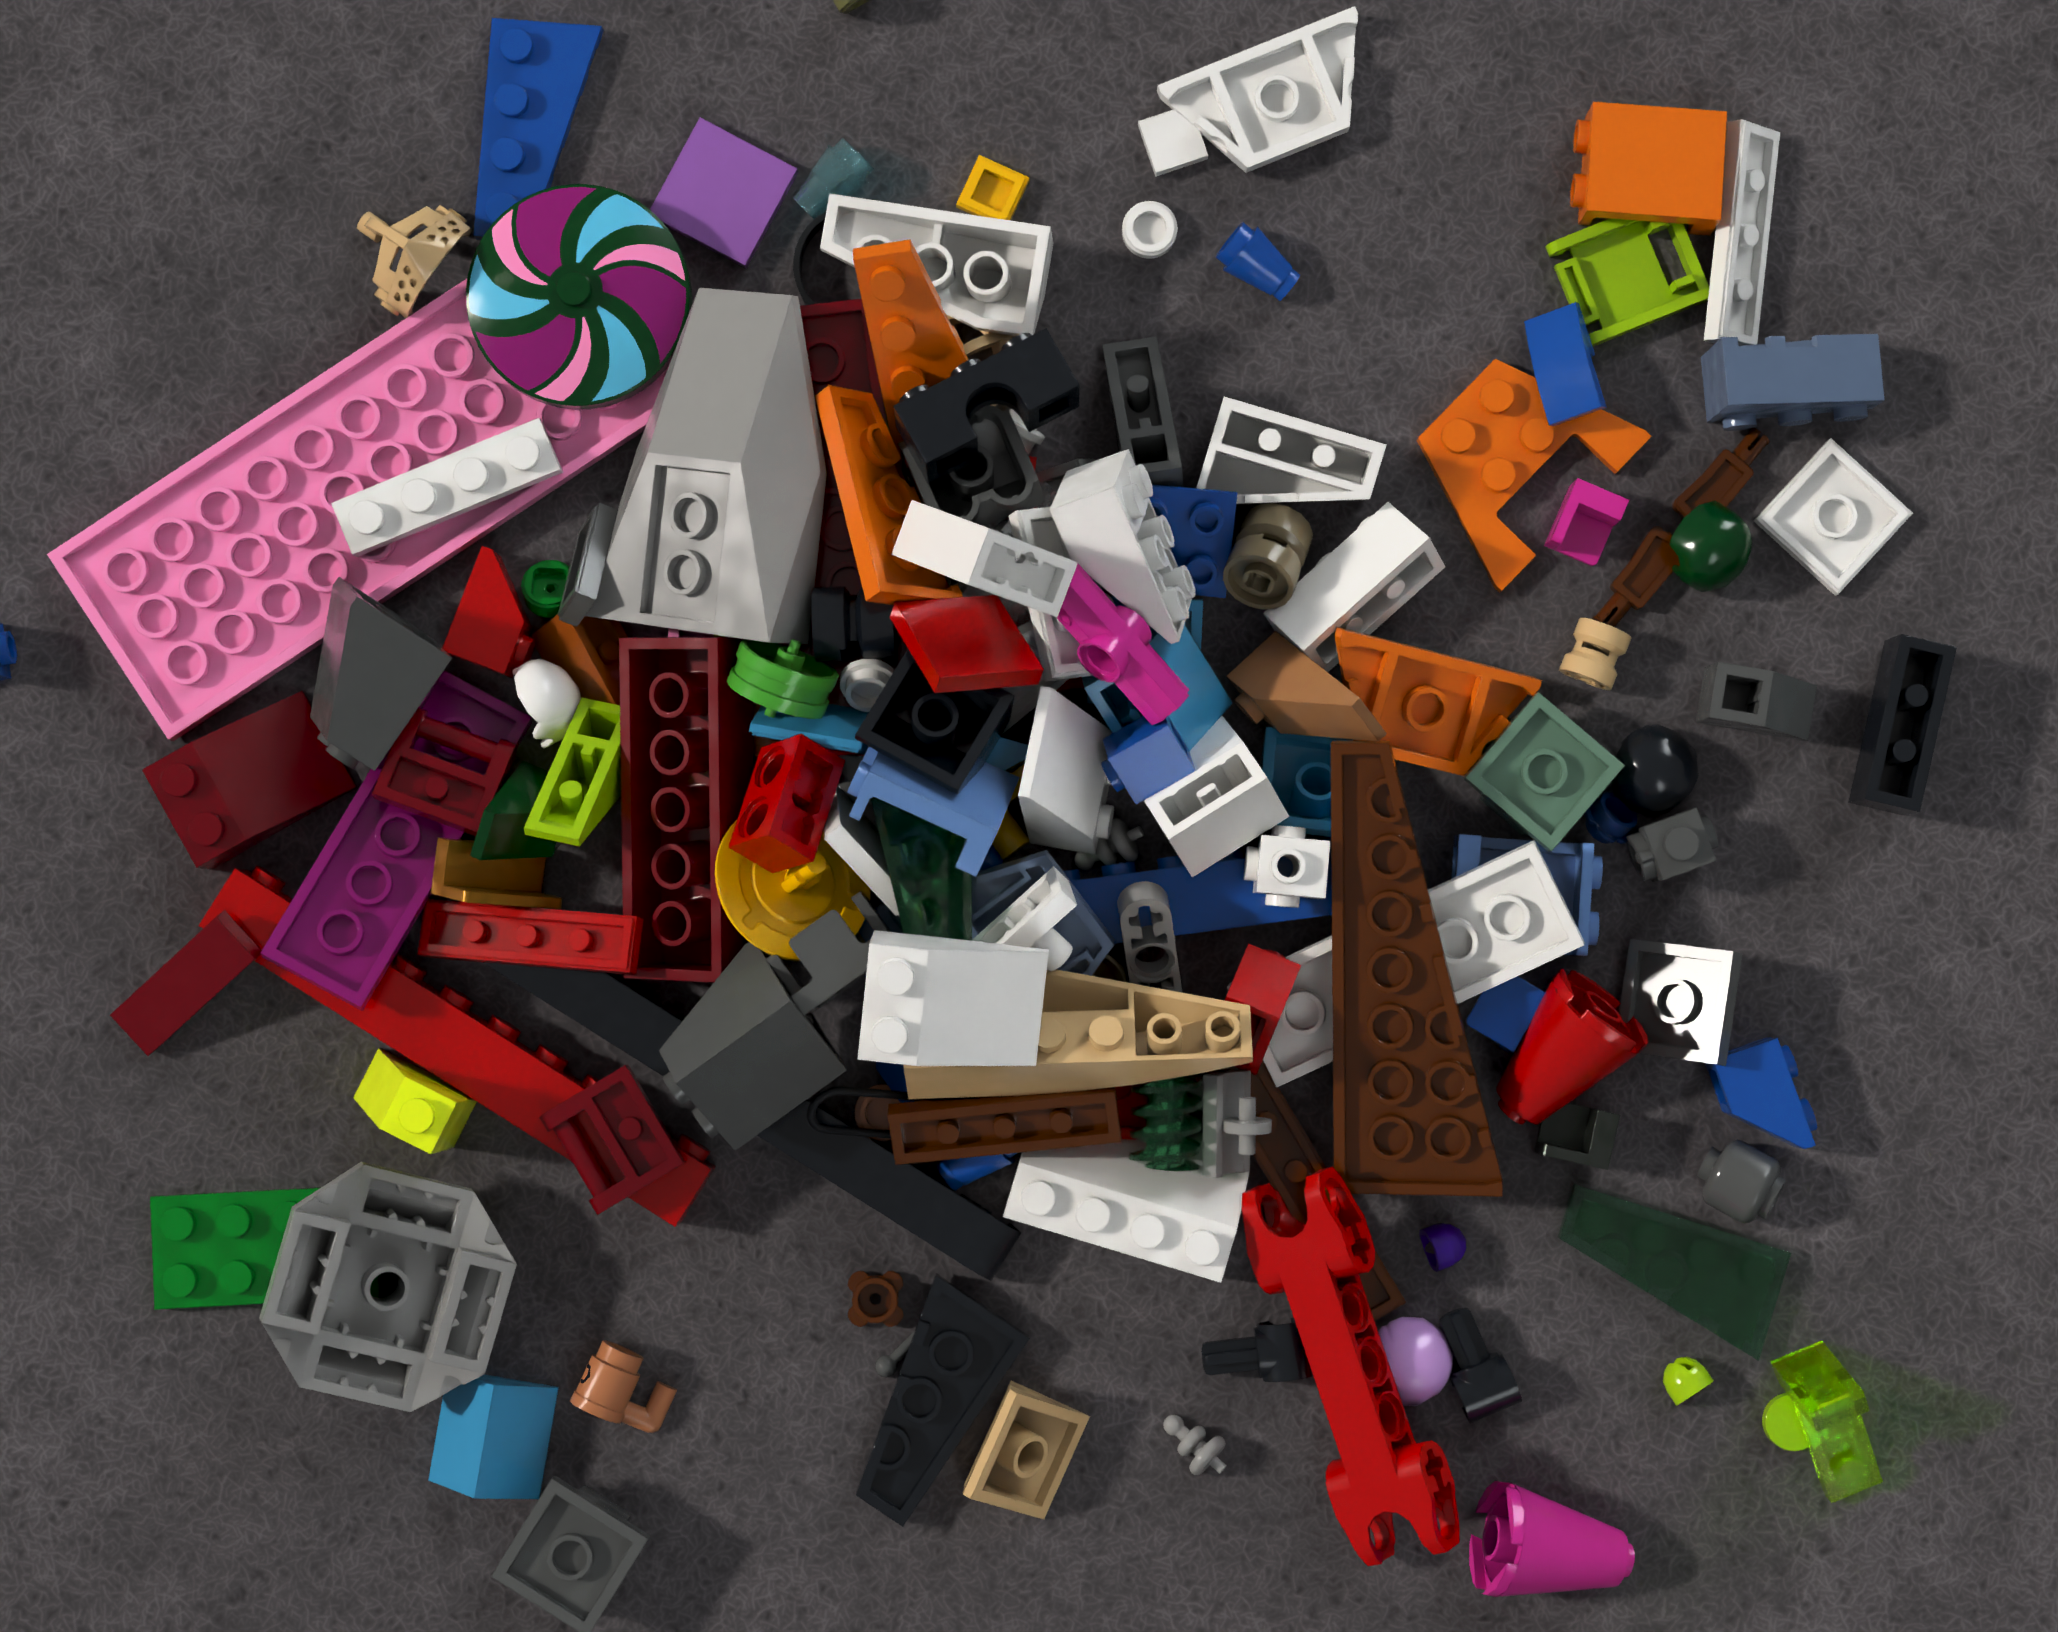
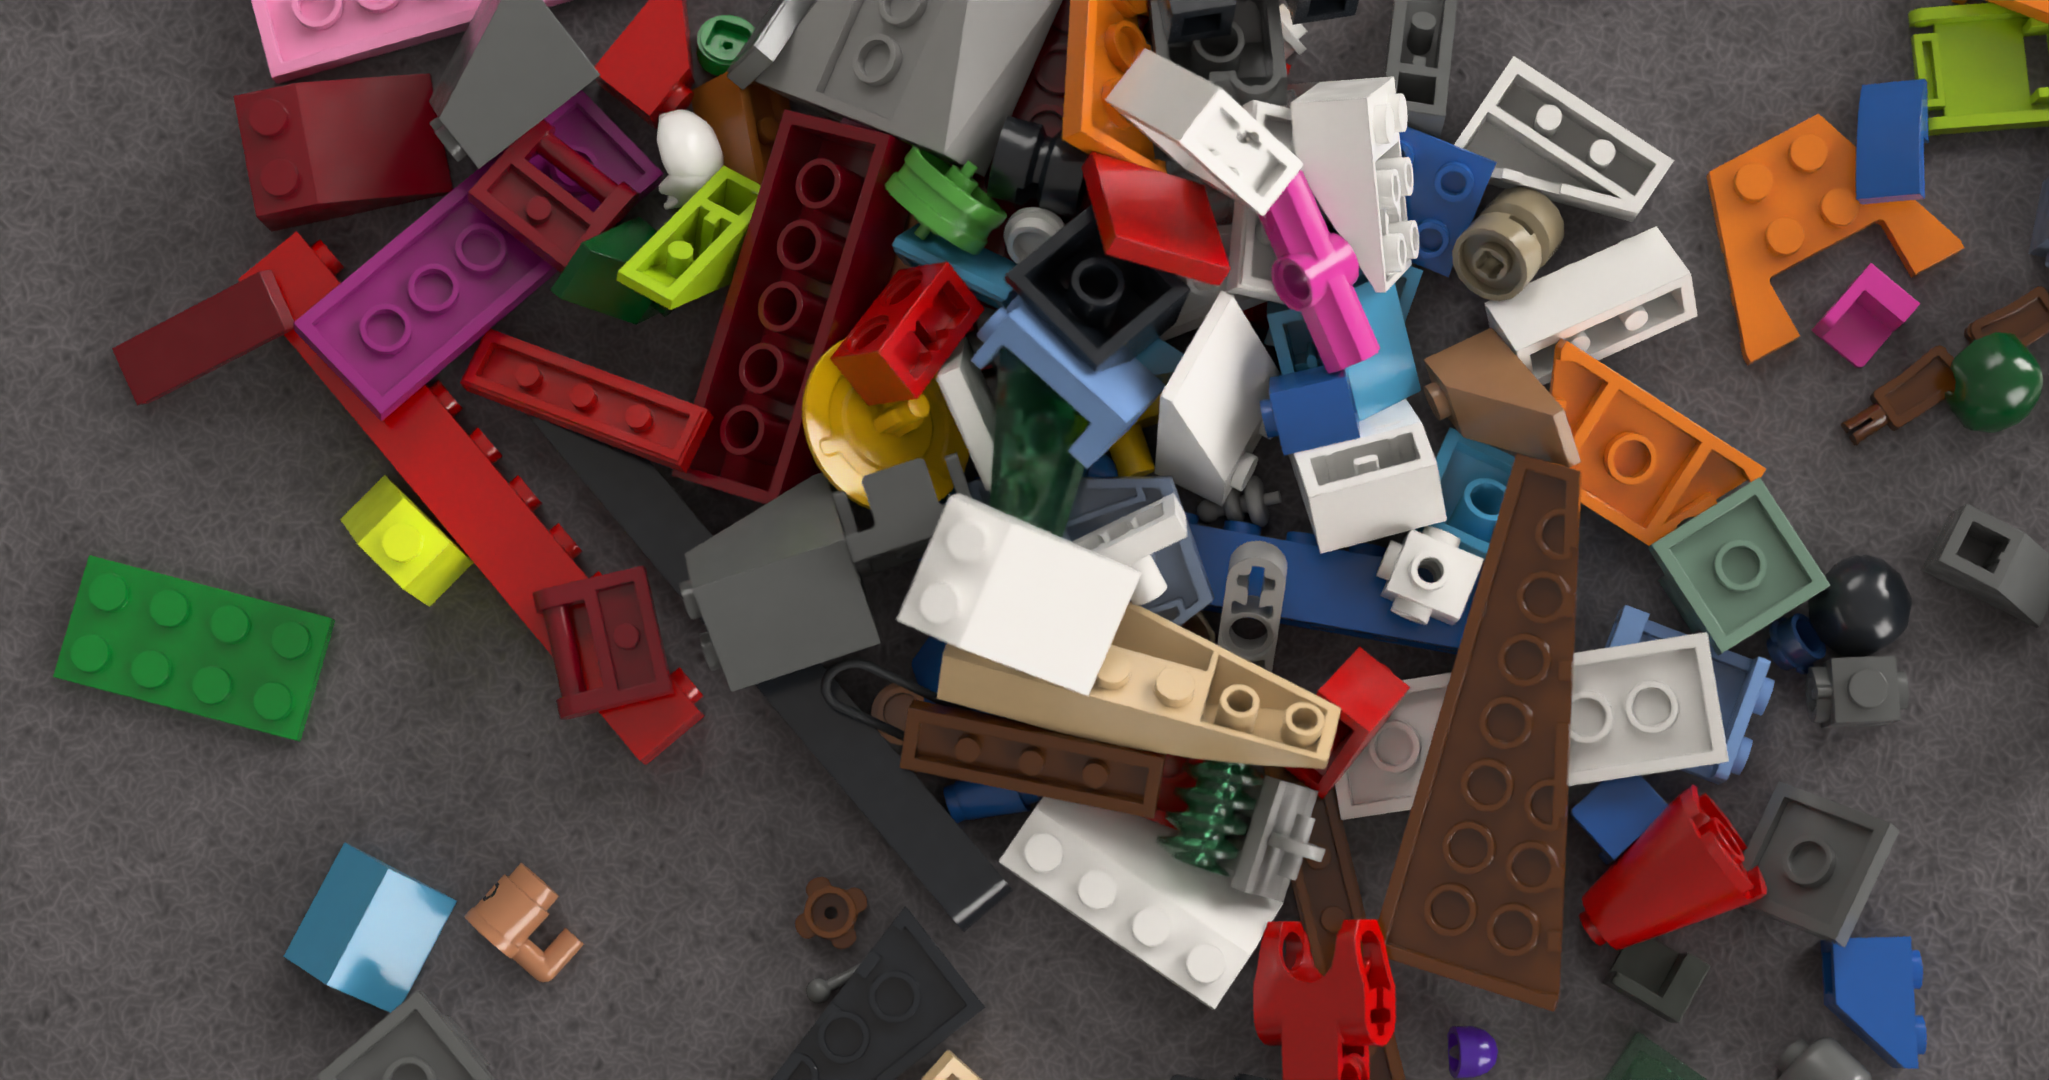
camera: 20 degrees right, 5 degrees down
(426, 1332) = (322, 794): light grey piece -> none
(488, 881) = (562, 324): pearl gold panel -> none
(1595, 653) = (1833, 460): tan wheel -> none

